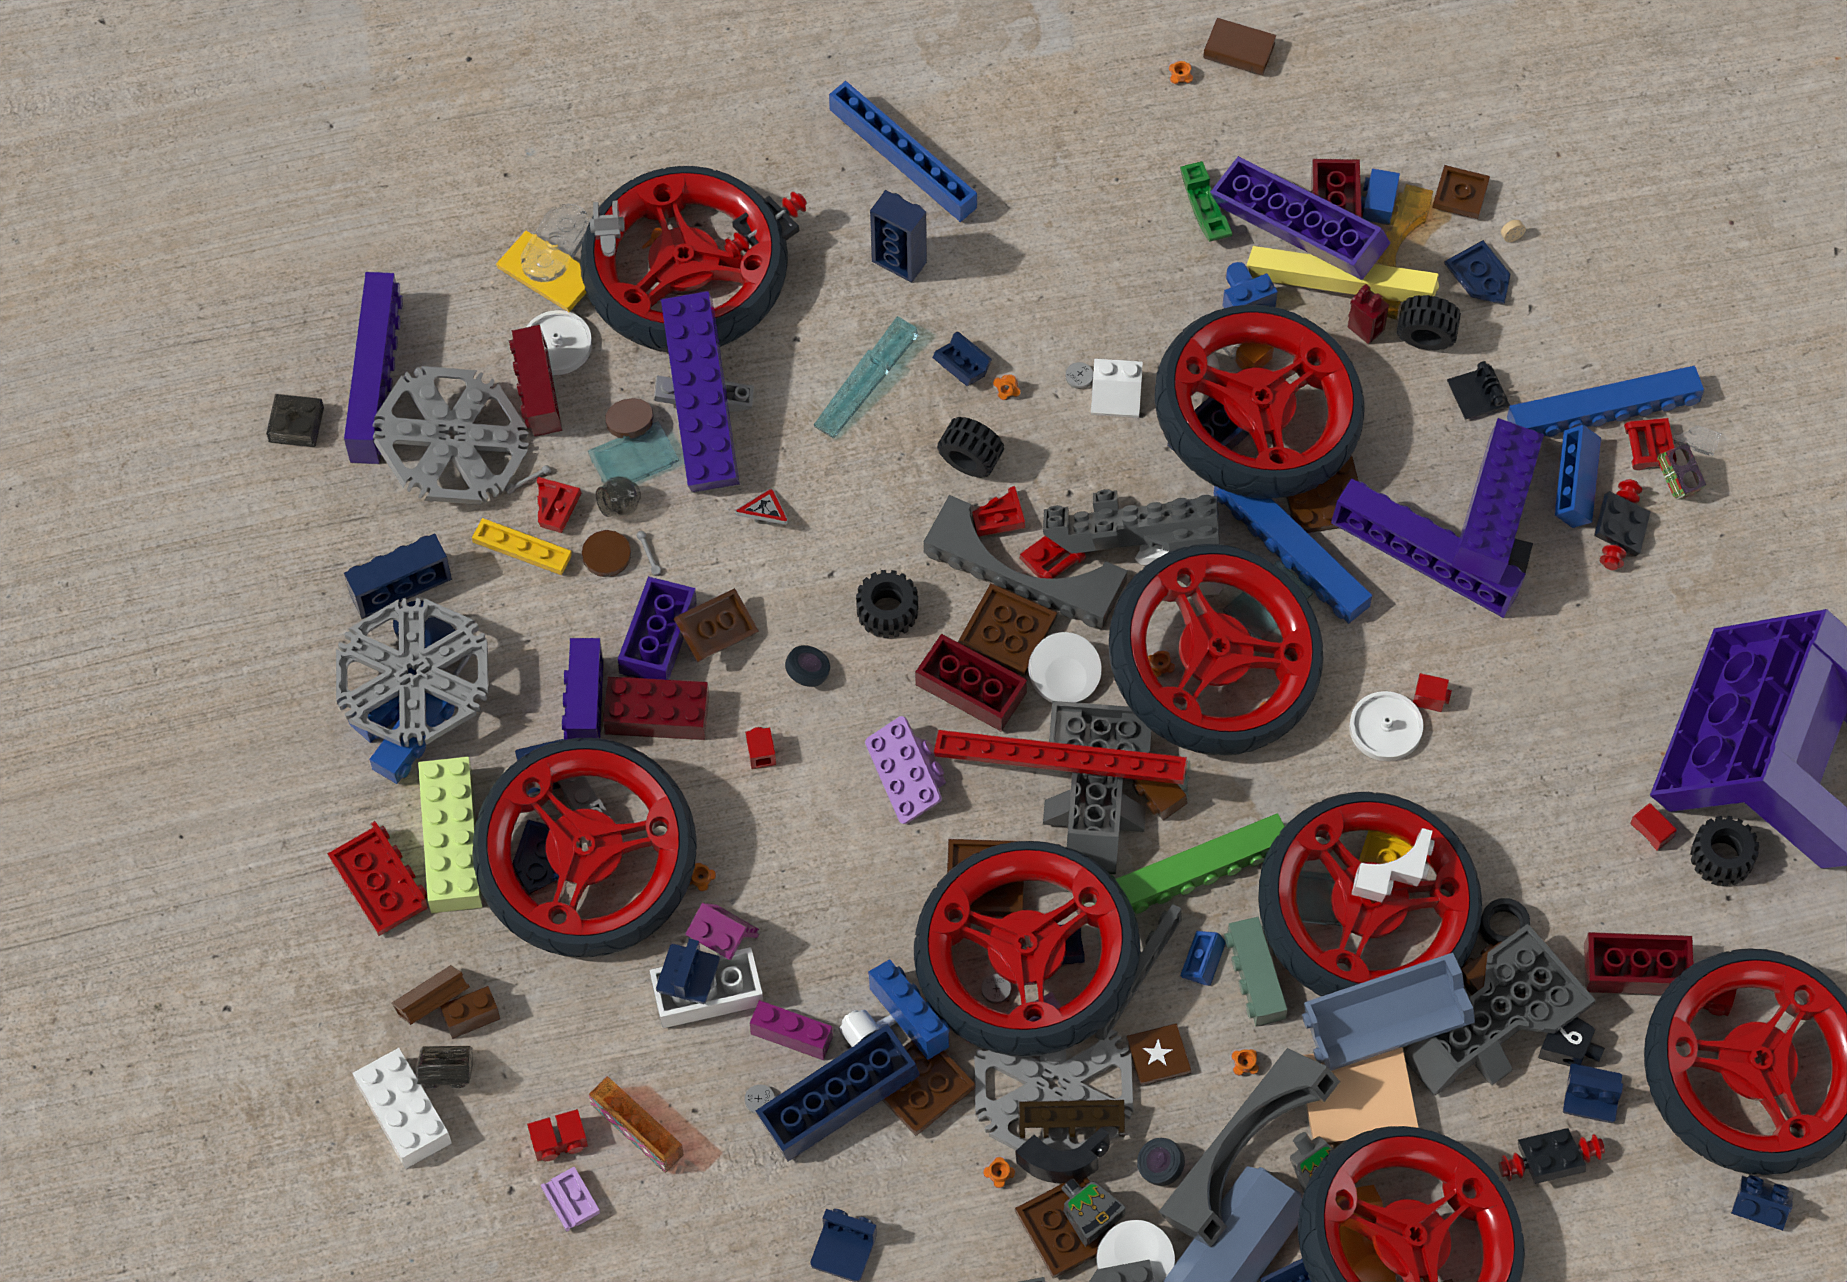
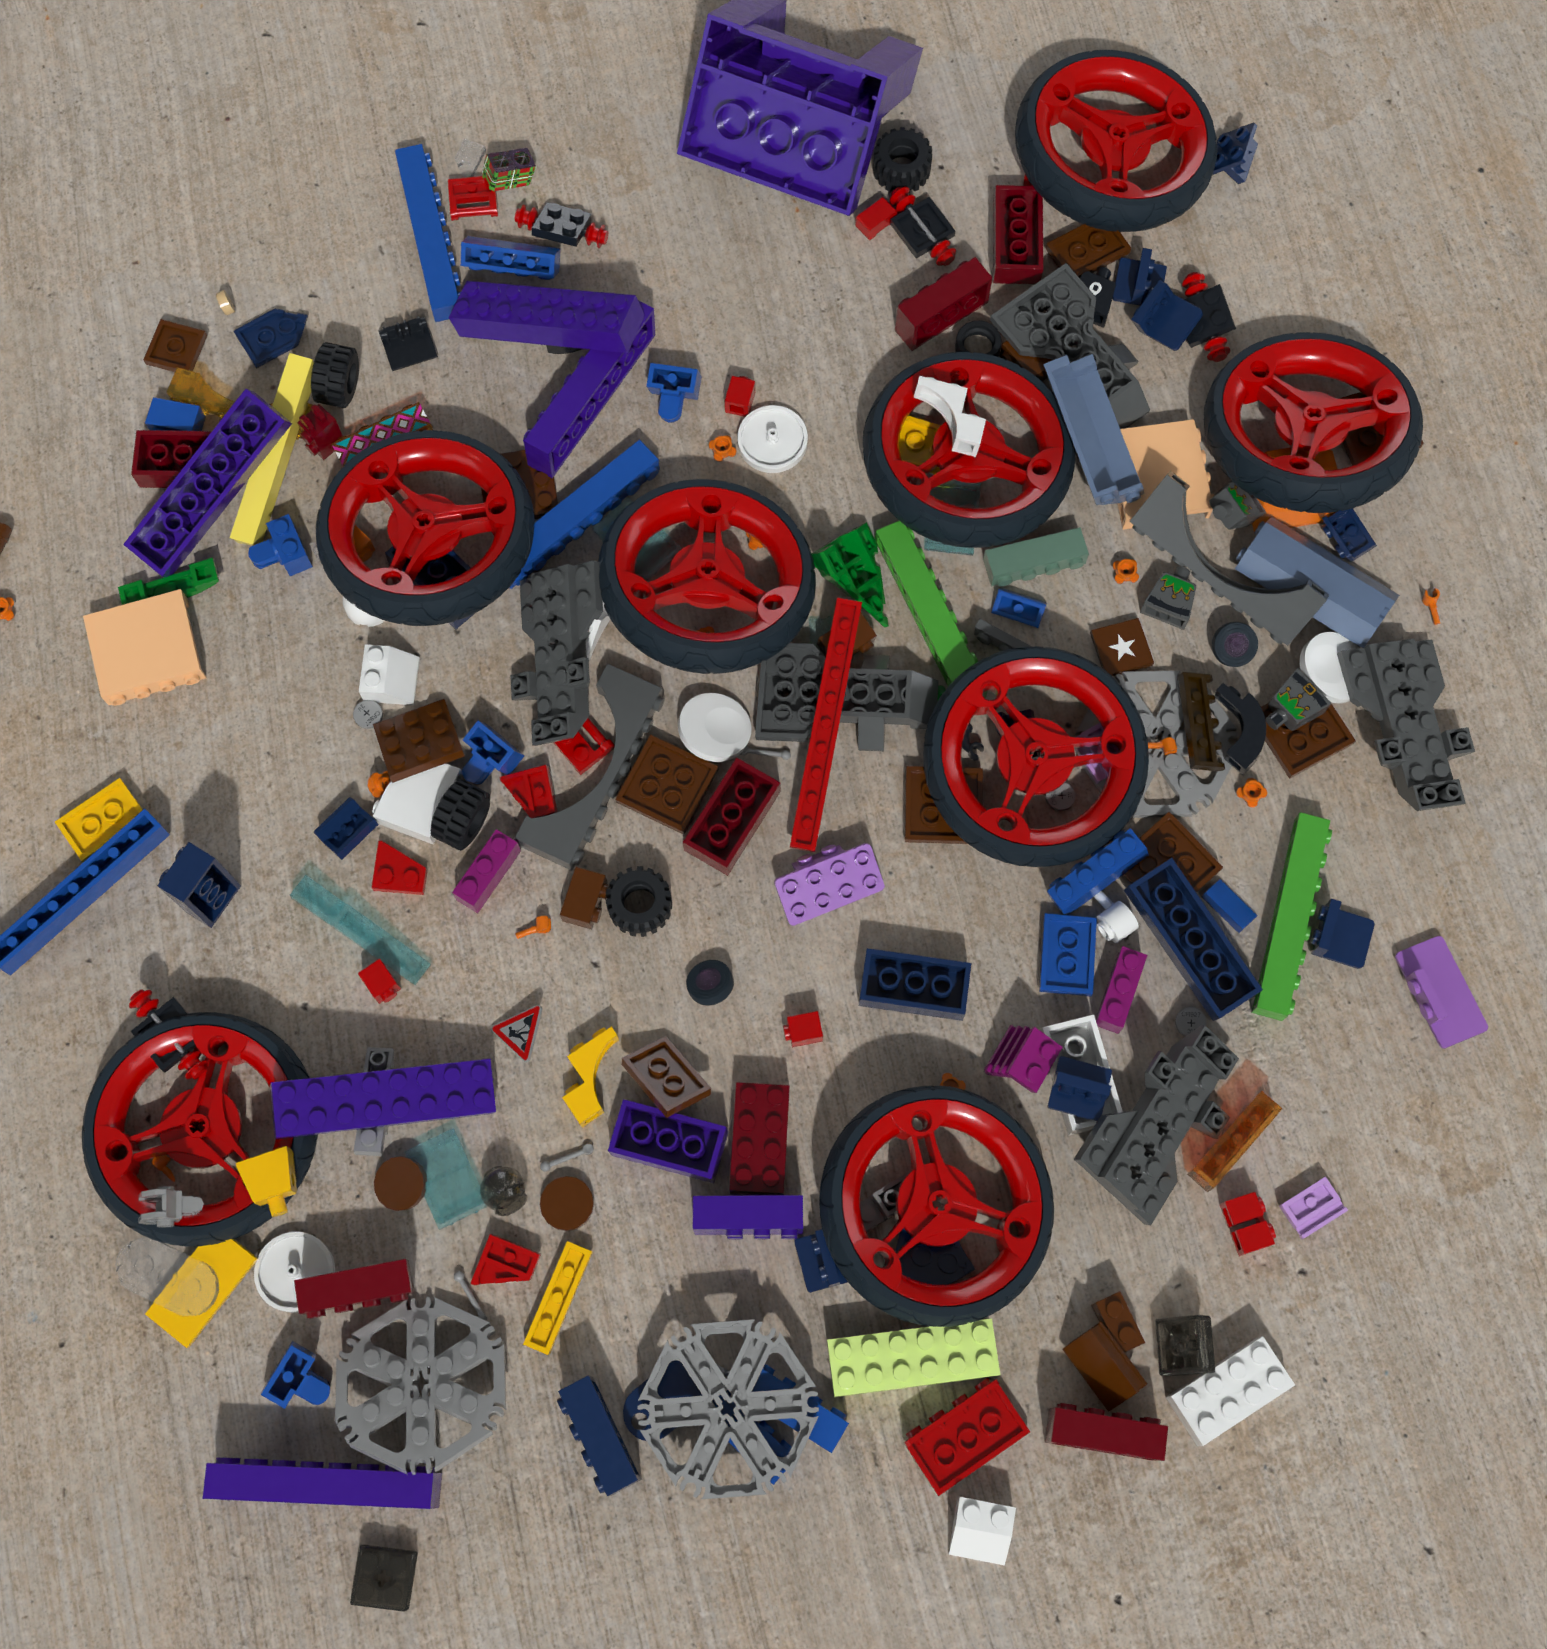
camera: 90 degrees left, 10 degrees up
(297, 890) = (981, 1530): none -> white slope
(370, 992) = (1106, 1434): none -> dark red brick
(464, 342) = (295, 1377): none -> blue brick
(629, 304) = (270, 1178): none -> yellow torso
(679, 1068) = (1137, 1148): none -> dark grey piece
(735, 563) = (586, 1059): none -> yellow arch
(799, 841) = (915, 984): none -> dark blue brick
(815, 393) = (379, 982): none -> red brick
(828, 985) = (1068, 954): none -> blue plate
(865, 1198) = (1291, 917): none -> bright green brick
(868, 527) = (543, 925): none -> orange hand
(878, 1142) = (1229, 906): none -> blue slope
(892, 555) = (584, 898): none -> reddish brown piece
(918, 475) = (486, 871): none -> magenta brick
(922, 406) = (397, 872): none -> red wing
(974, 165) = (98, 818): none -> yellow plate
(997, 411) = (411, 802): none -> white brick
(1038, 474) = (488, 752): none -> blue brick
(1040, 736) = (785, 754): none -> light grey hinge
(1046, 1088) = (1168, 744): none -> orange hand
(1048, 413) = (418, 740): none -> reddish brown plate
(1058, 898) = (968, 747): none -> black arm
(1141, 185) = (143, 647): none -> light nougat panel
(1211, 1102) = (1171, 598): none -> dark grey torso
(1232, 792) = (852, 568): none -> green wedge
(1377, 673) = (722, 441): none -> orange plate
(1378, 384) = (409, 419): none -> brick
(1436, 628) = (673, 386): none -> blue brick
(1545, 883) = (943, 303): none -> dark red brick
(1546, 1110) = (1166, 317): none -> dark blue bracket
(1623, 1036) = (1088, 249): none -> reddish brown plate
(1646, 872) = (922, 227): none -> black plate

